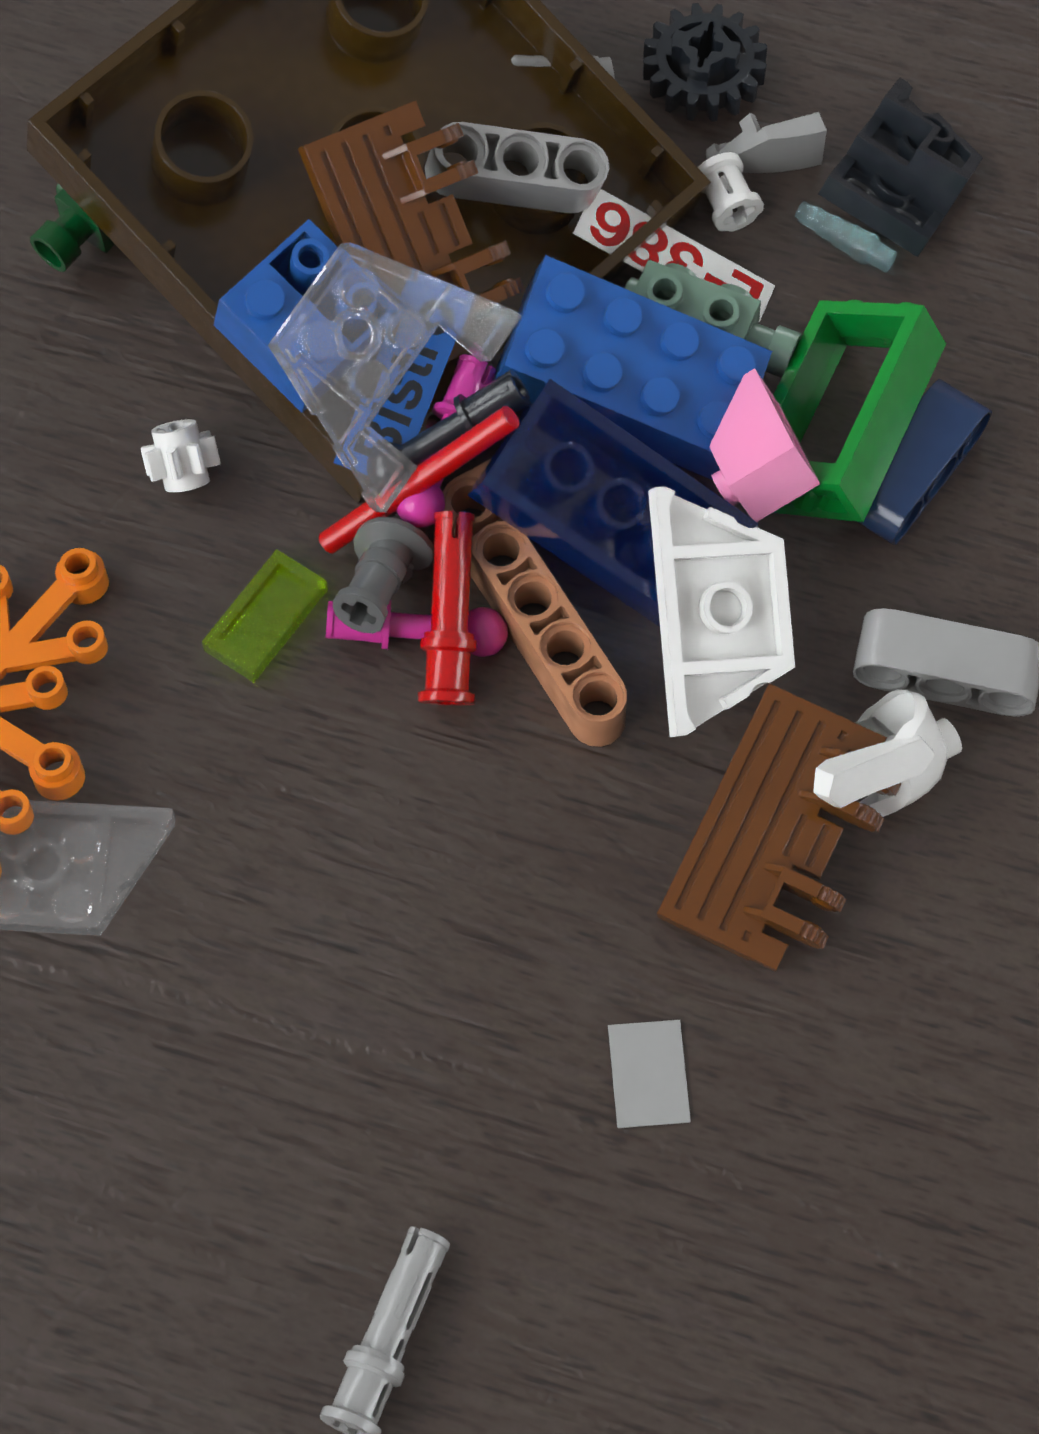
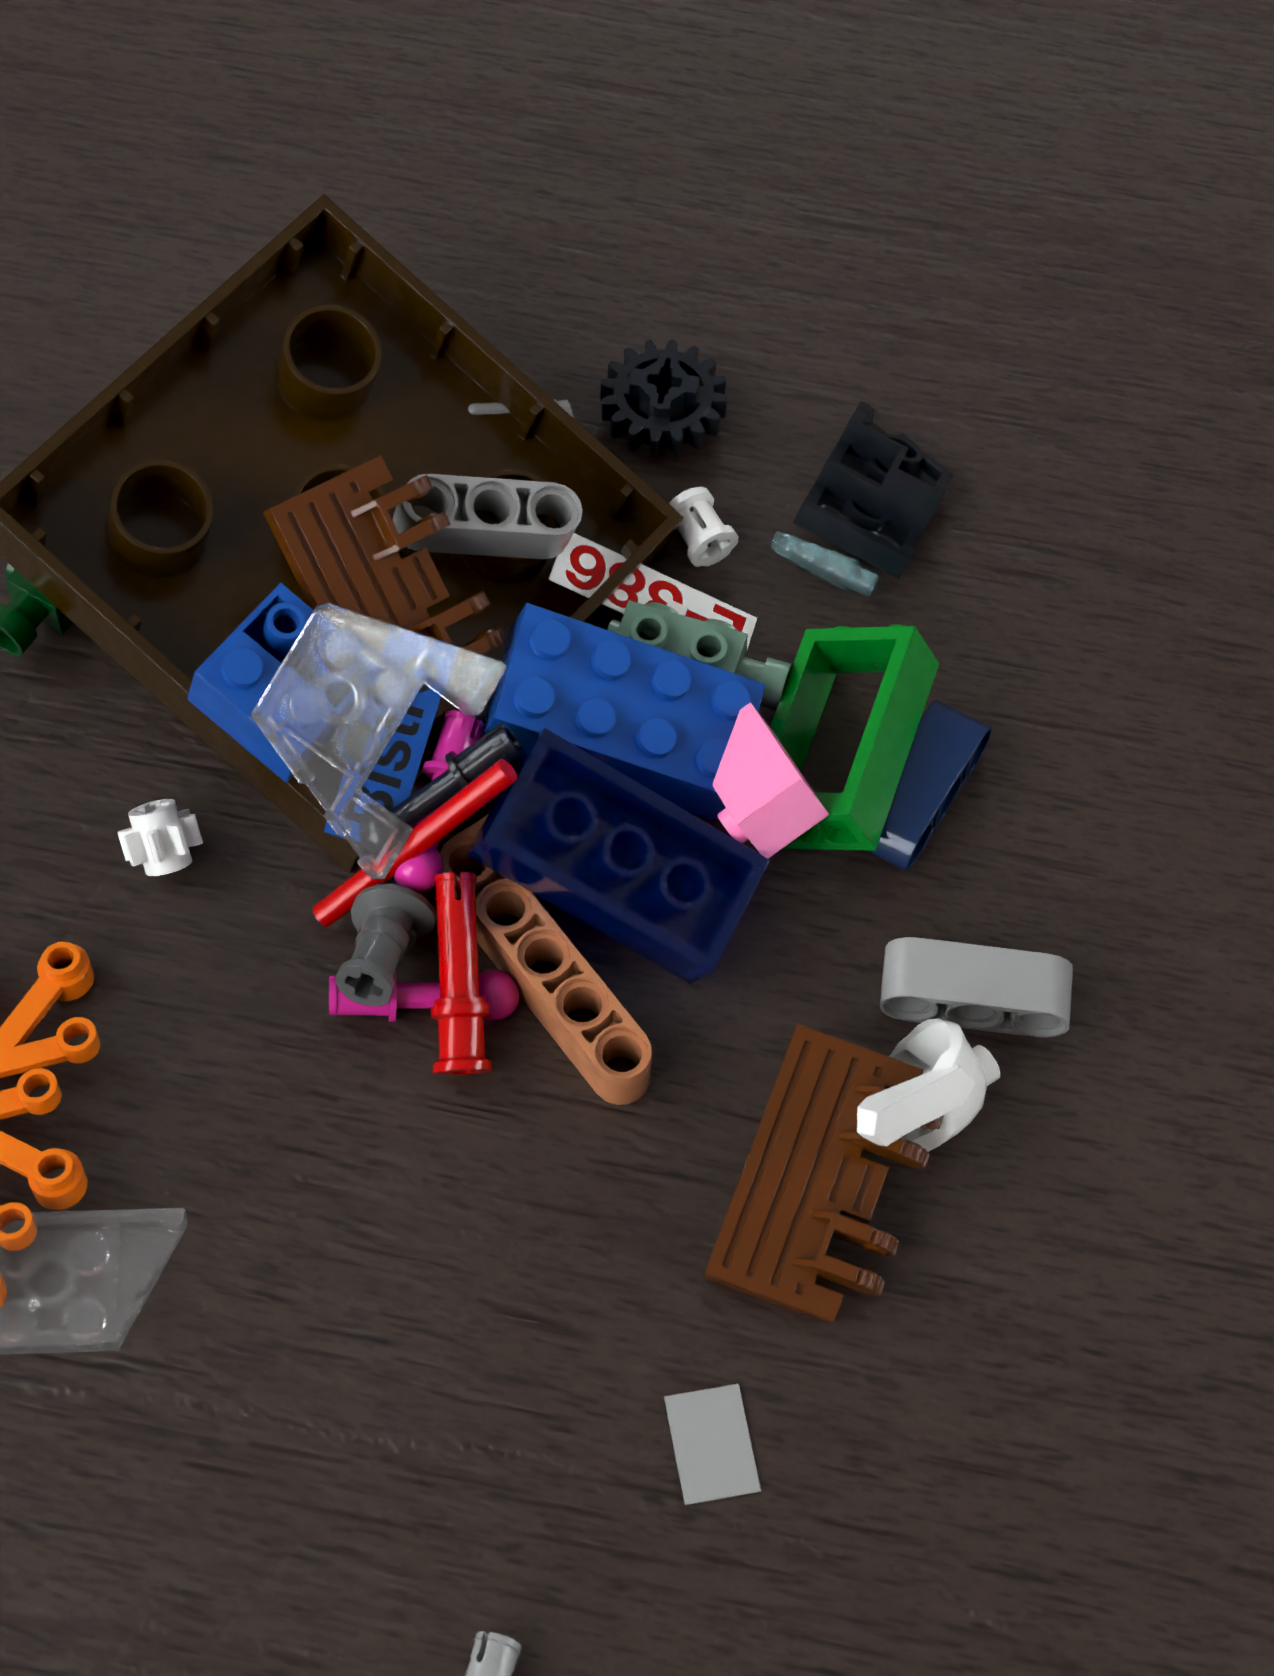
camera: 10 degrees left, 5 degrees down
(265, 615) = (262, 997): clear neon green tile -> none
(718, 608) = (737, 951): white wing -> none
(778, 146) = (745, 478): light grey slope -> none

